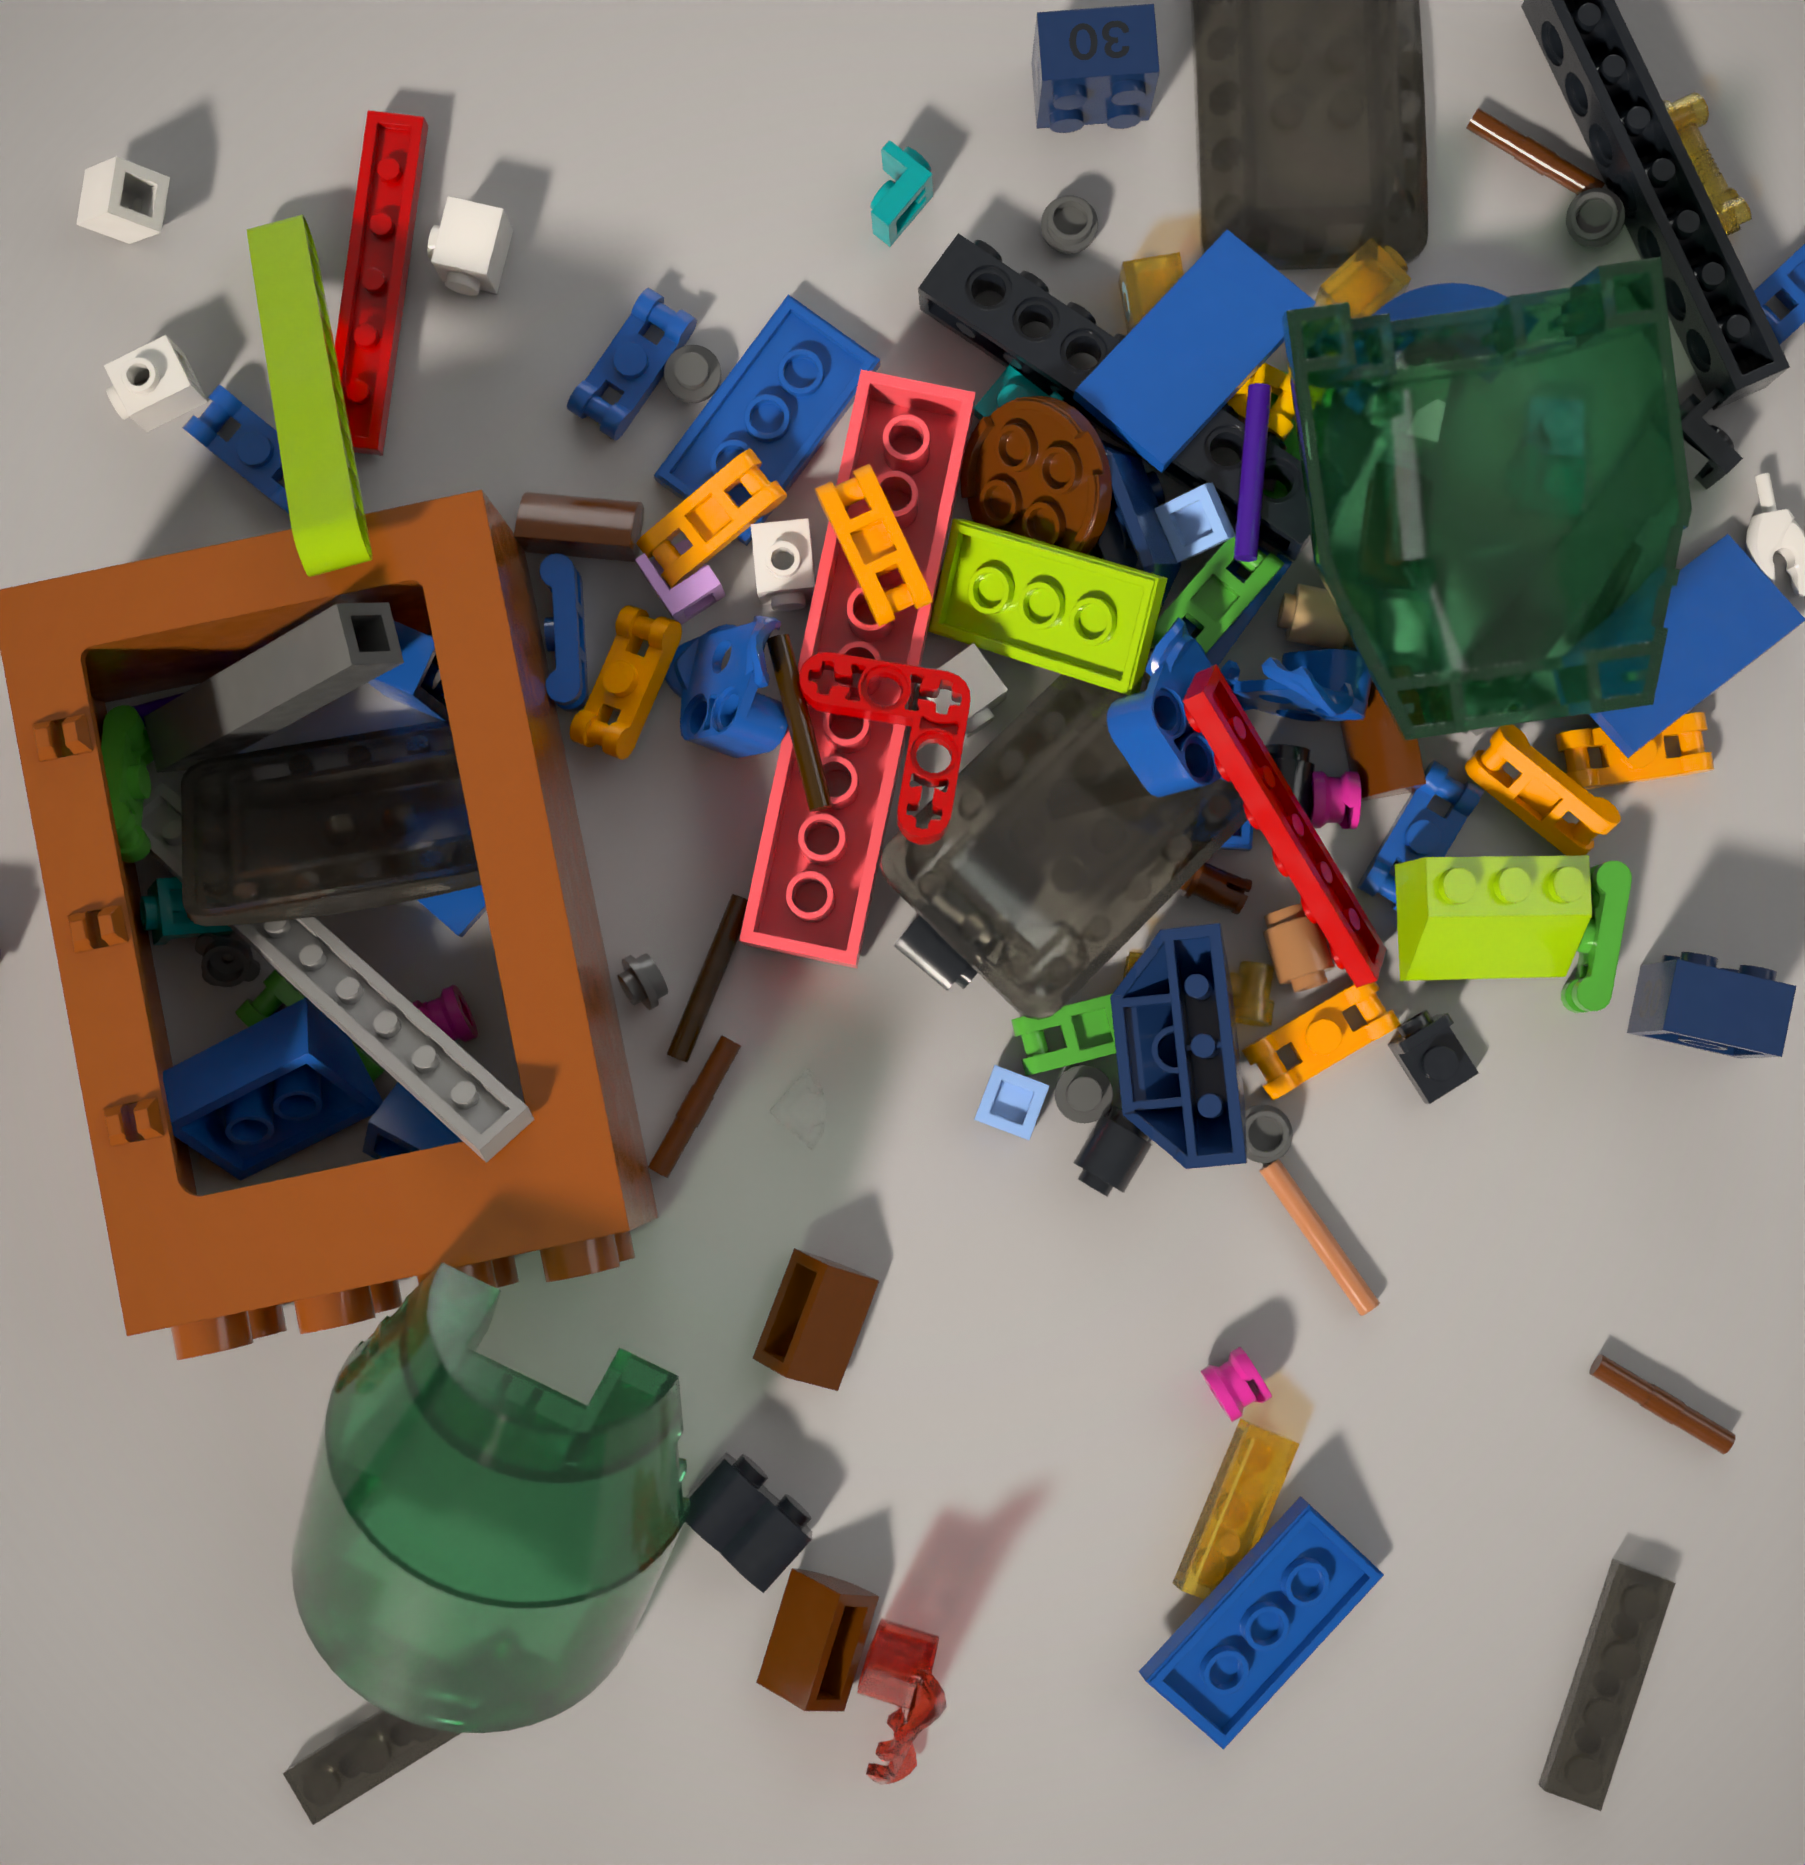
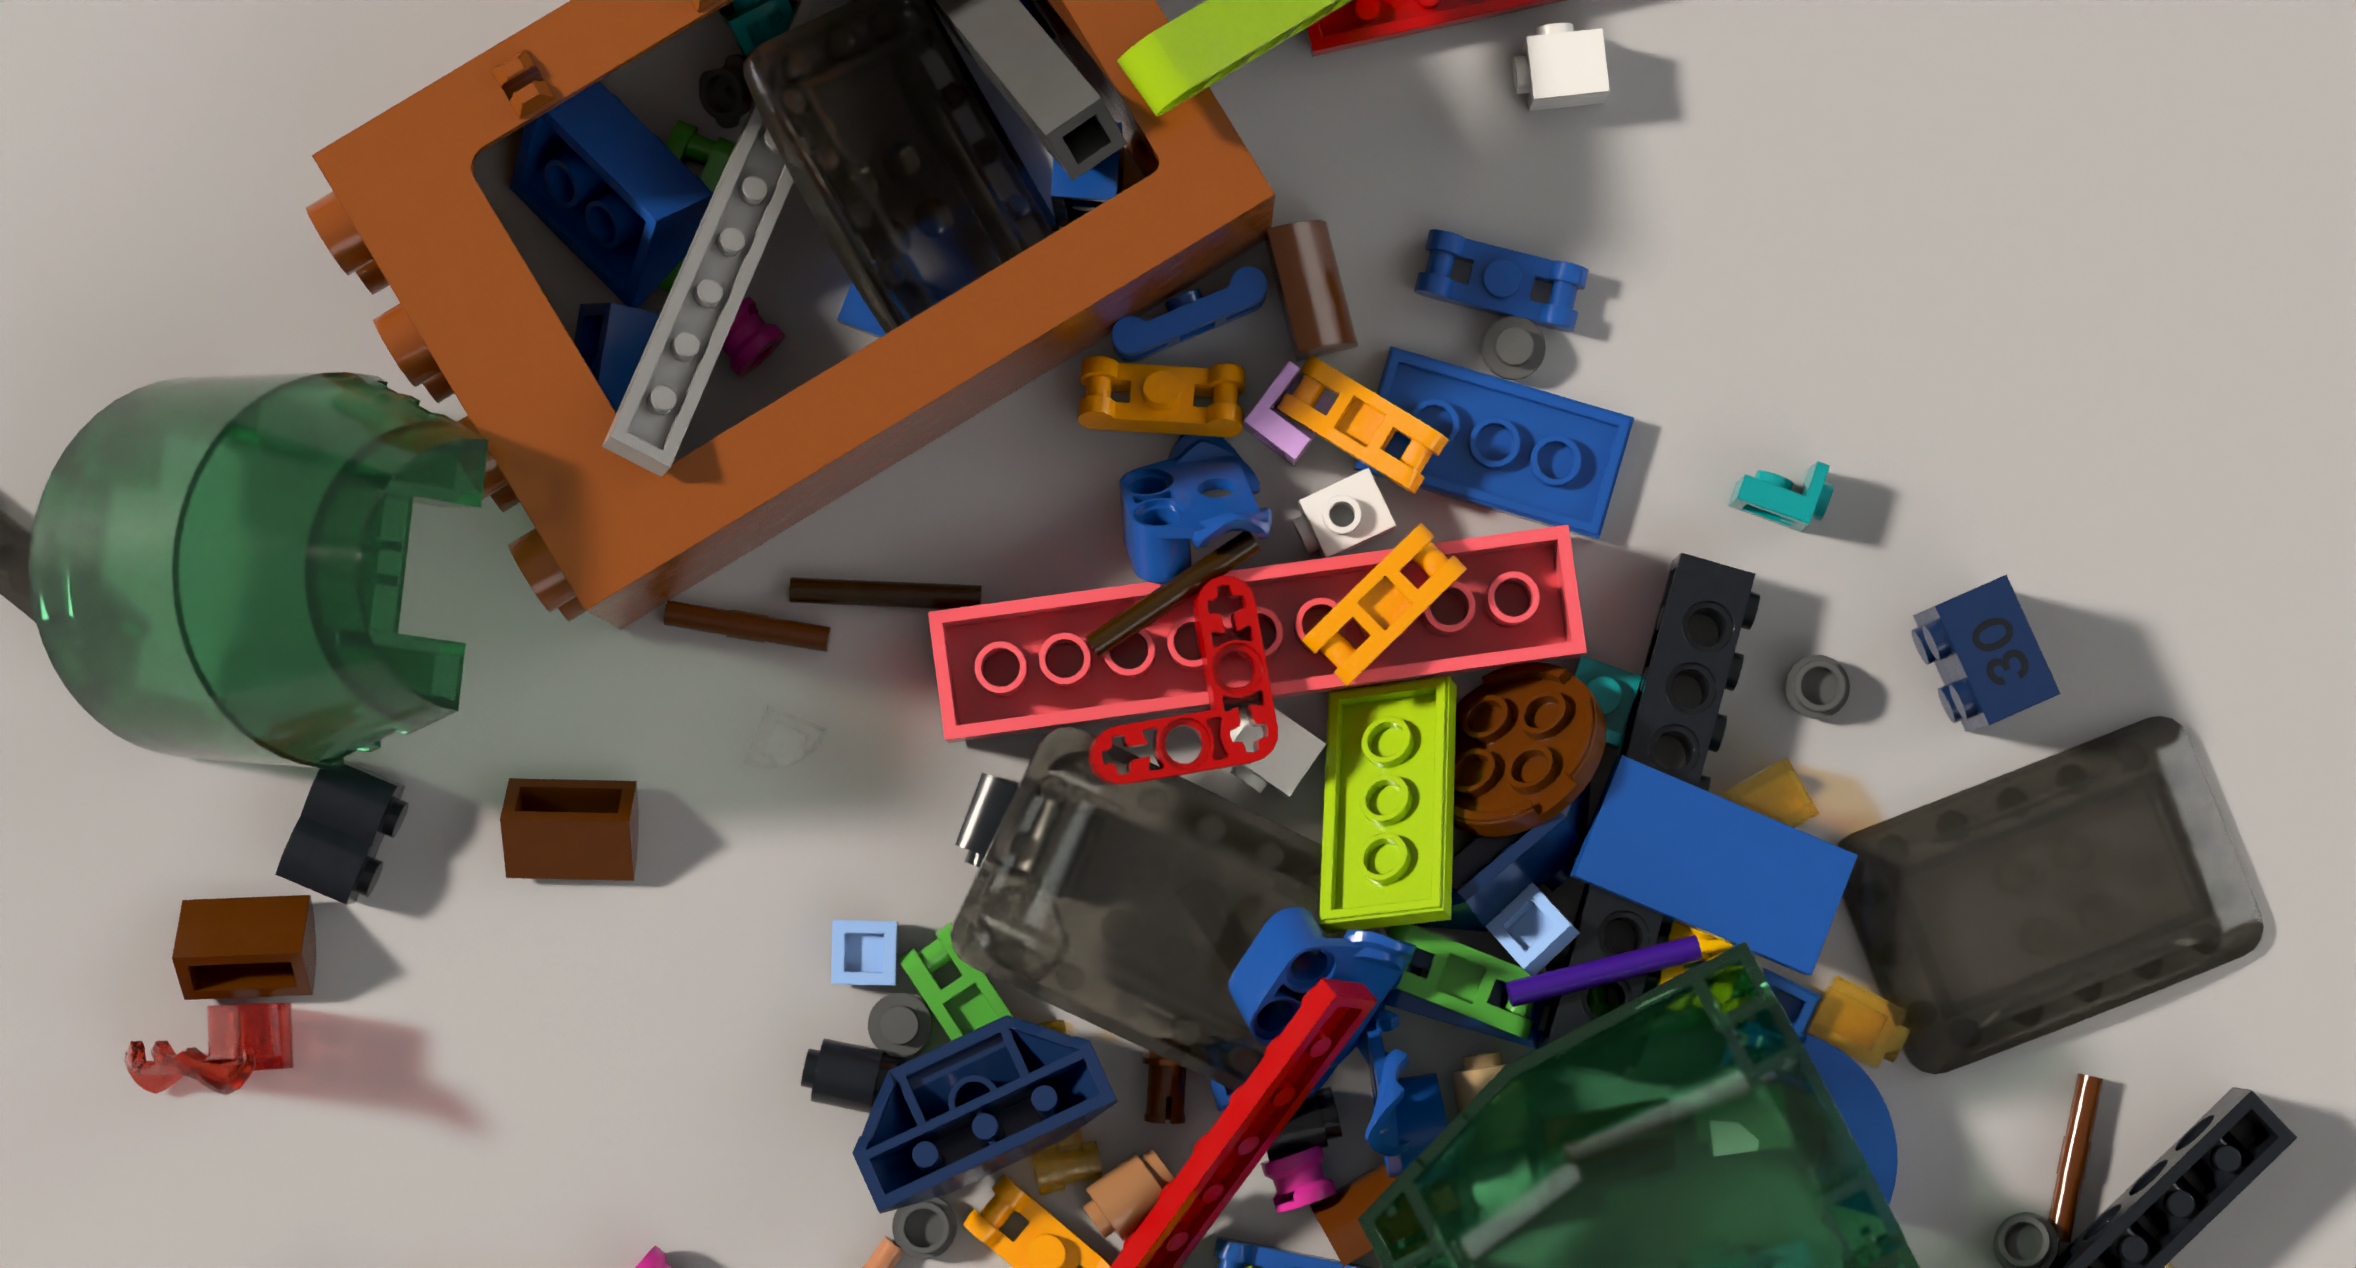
camera: 65 degrees right, 0 degrees up
(642, 981) = (856, 525): dark grey plate -> none

